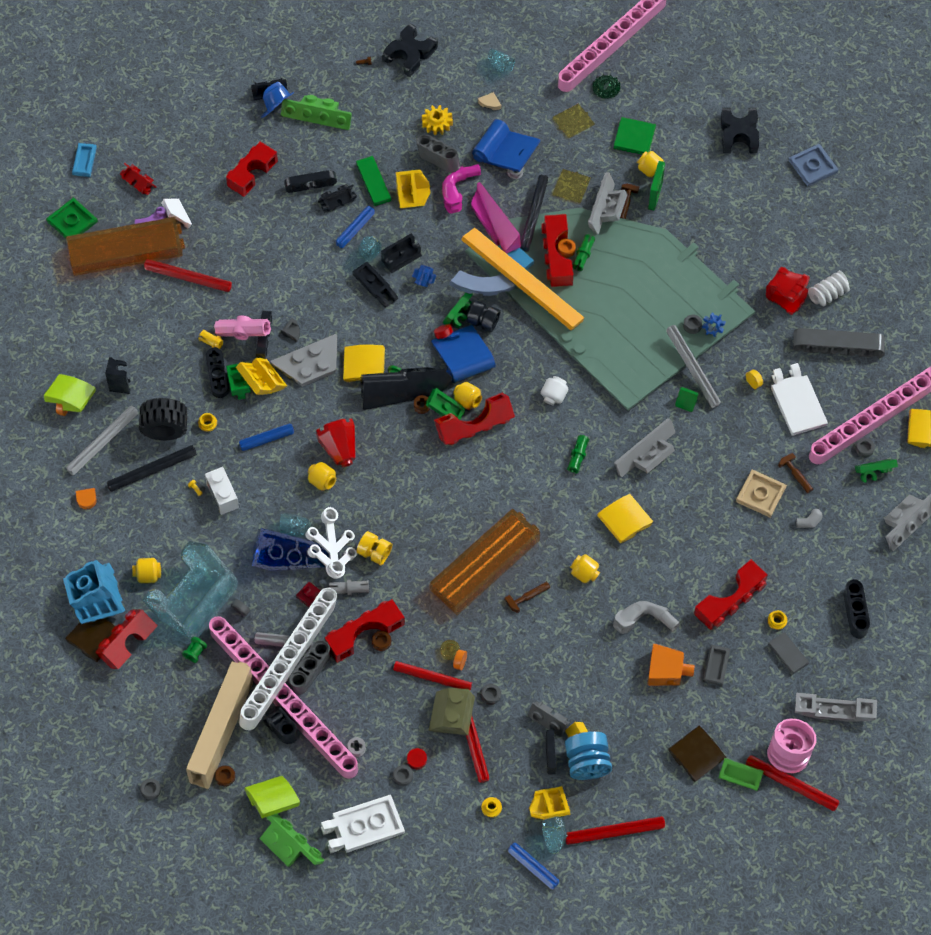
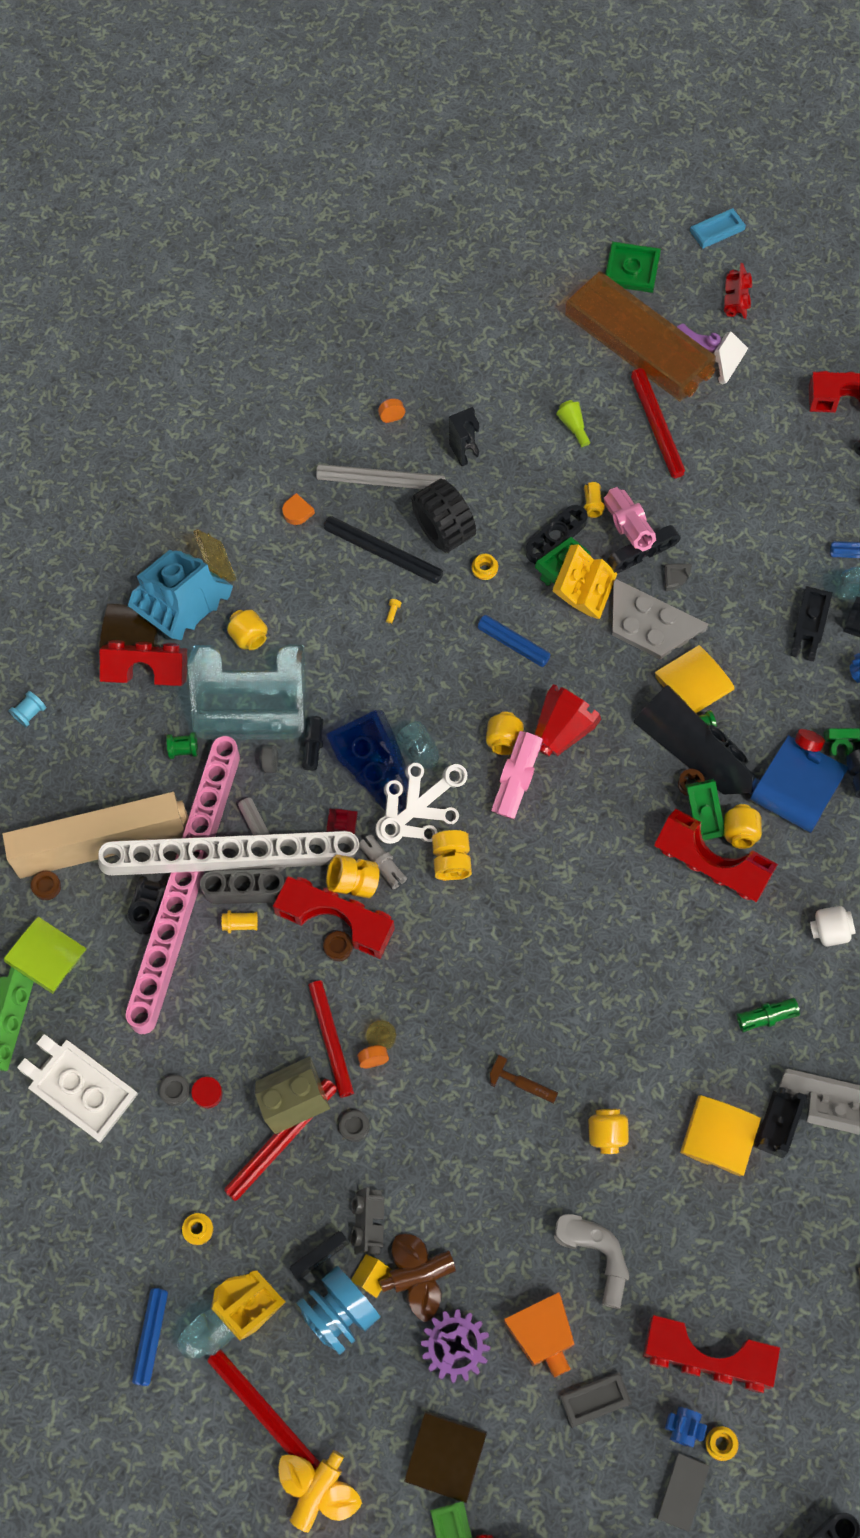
camera: 60 degrees right, 5 degrees up
(70, 393) = (410, 405): lime slope -> none
(83, 557) = (214, 555): none -> clear yellow piece
(101, 722) = (27, 709): none -> medium azure bush
(148, 315) = (571, 416): none -> lime cone
(221, 490) = (404, 638): white brick -> none
(248, 579) = (312, 742): none -> black axle
(329, 681) = (239, 921): none -> yellow pin
(349, 604) = (352, 876): none -> yellow wheel
(353, 484) = (517, 775): none -> bright pink piece
(361, 744) = (166, 1009): light grey bush -> none
(485, 561) = (530, 998): clear orange brick -> none
(594, 709) = (418, 1274): none -> reddish brown plant
(639, 485) = (780, 1122): none -> black hinge
(647, 705) = (449, 1359): none -> medium lavender gear
(671, 825) = (317, 1490): none -> yellow plant
(759, 629) = (686, 1427): none -> blue gear

